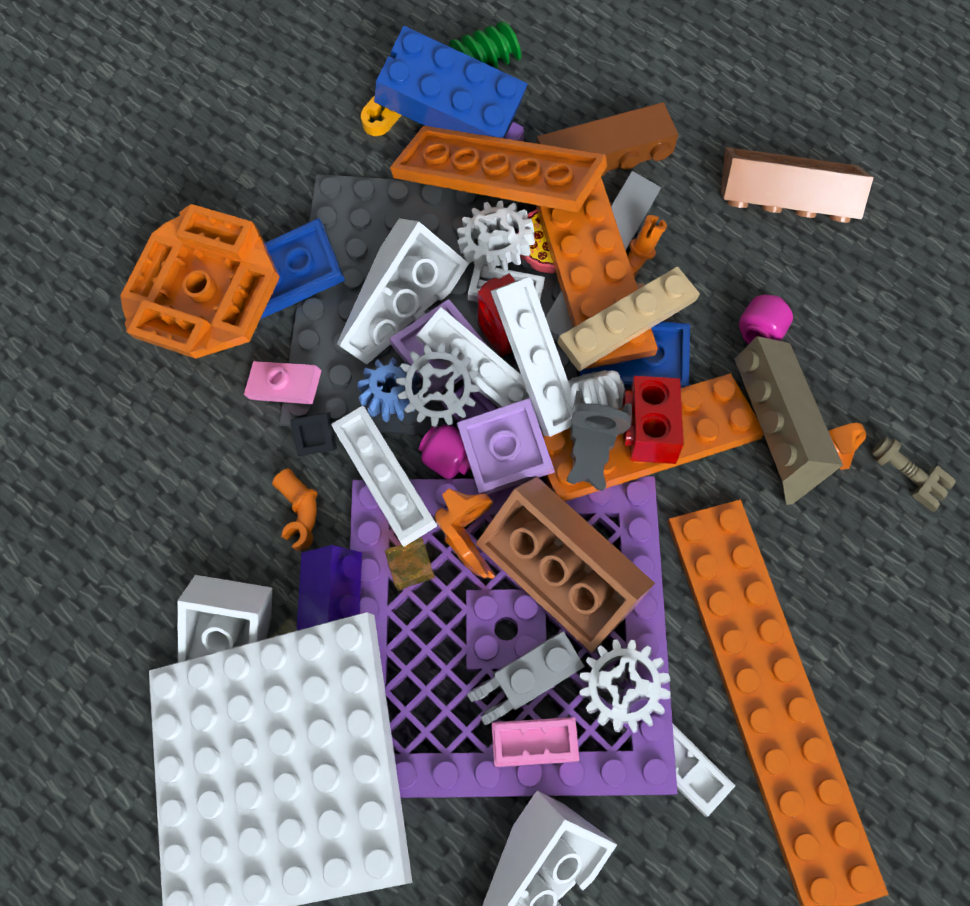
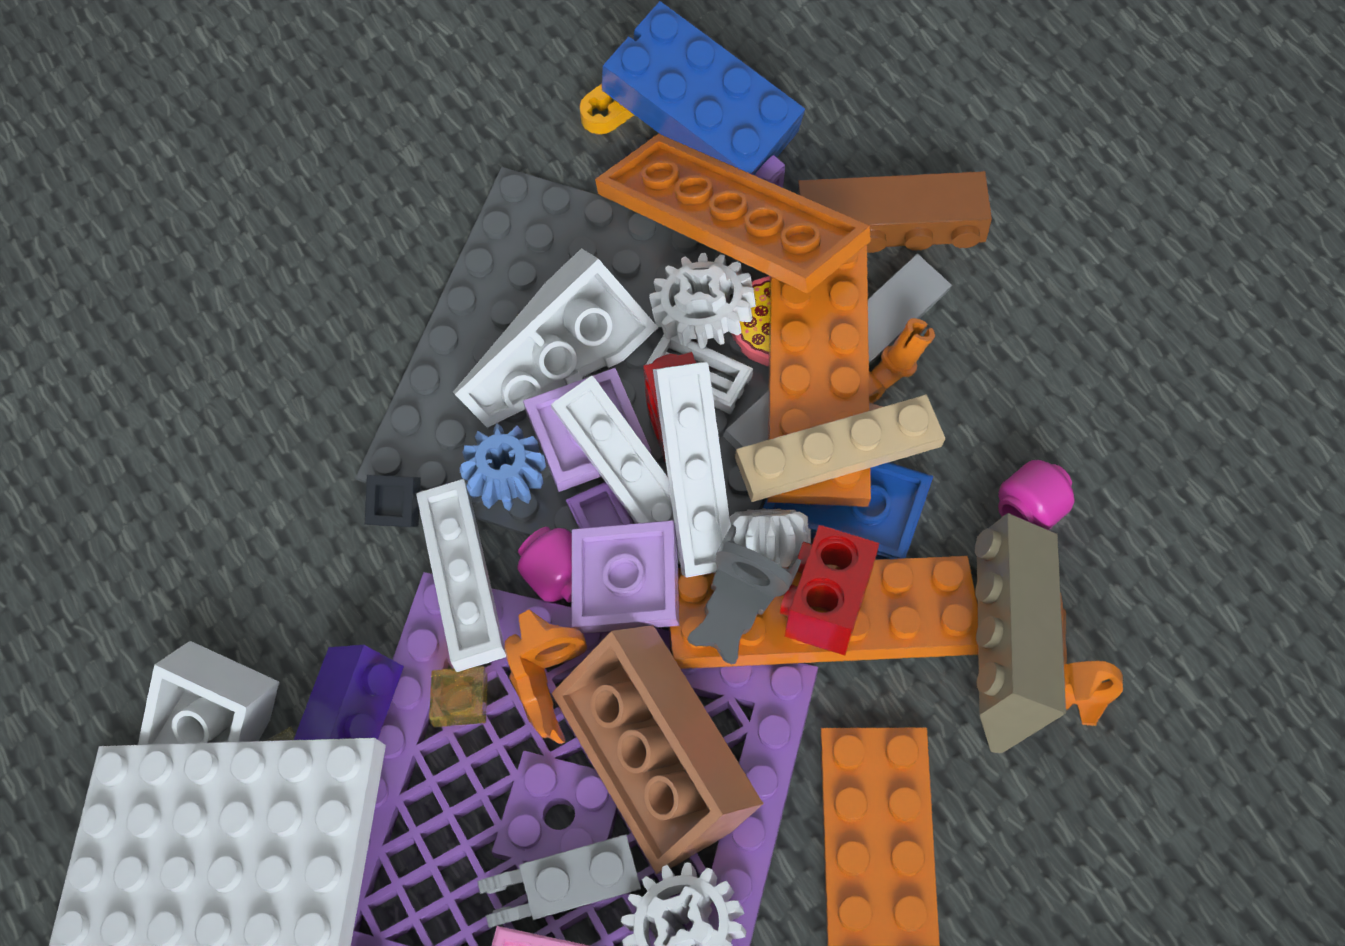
camera: 20 degrees right, 5 degrees down
(199, 284) = (304, 276): orange piece -> none
(283, 382) = (374, 425): bright pink plate -> none
(303, 503) = (352, 587): orange piece -> none
(304, 265) = (421, 283): blue tile -> none
(426, 371) = (549, 453): light grey gear -> none
(490, 45) = (773, 50): green piece -> none
(794, 184) = (1136, 320): slope -> none
(927, 483) = (1197, 773): dark tan hinge -> none

